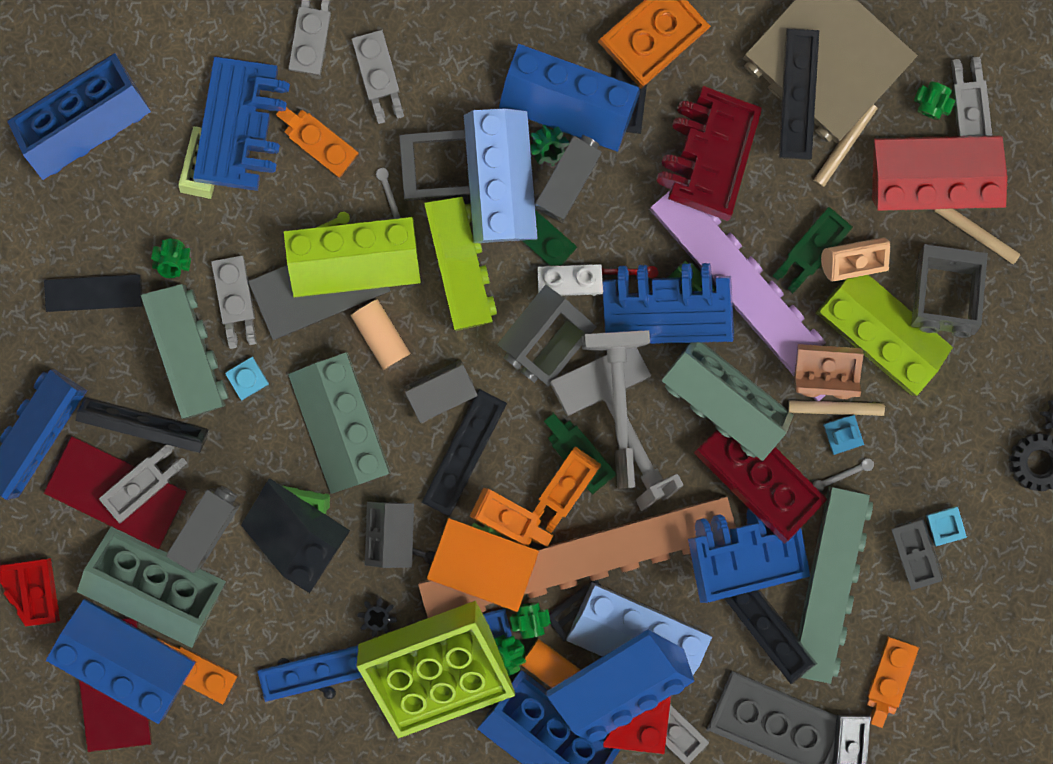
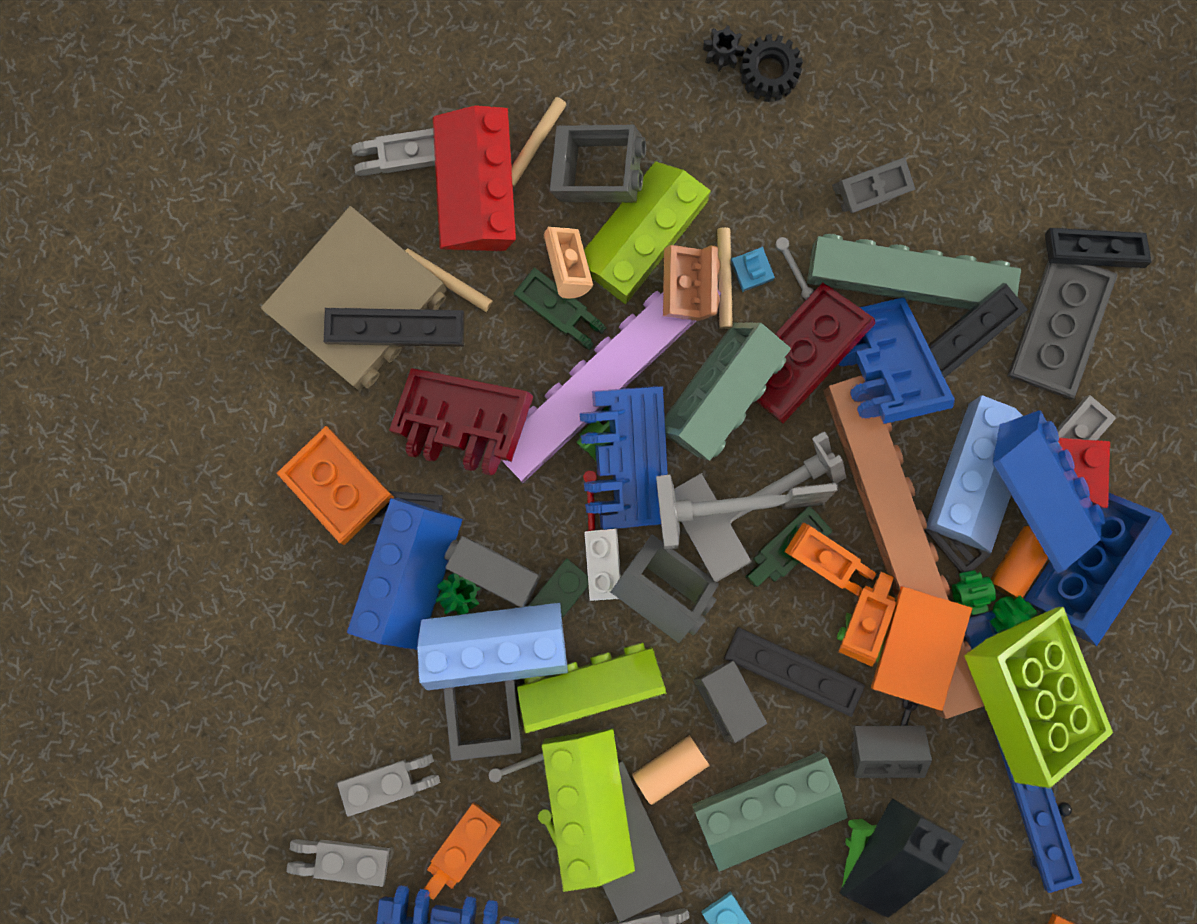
camera: 90 degrees left, 5 degrees down
(378, 608) = (991, 761): black gear -> none
(890, 679) = (1006, 210): orange hinge -> none
(934, 100) = (398, 188): green gear -> none
(946, 526) = (843, 159): medium azure plate -> none

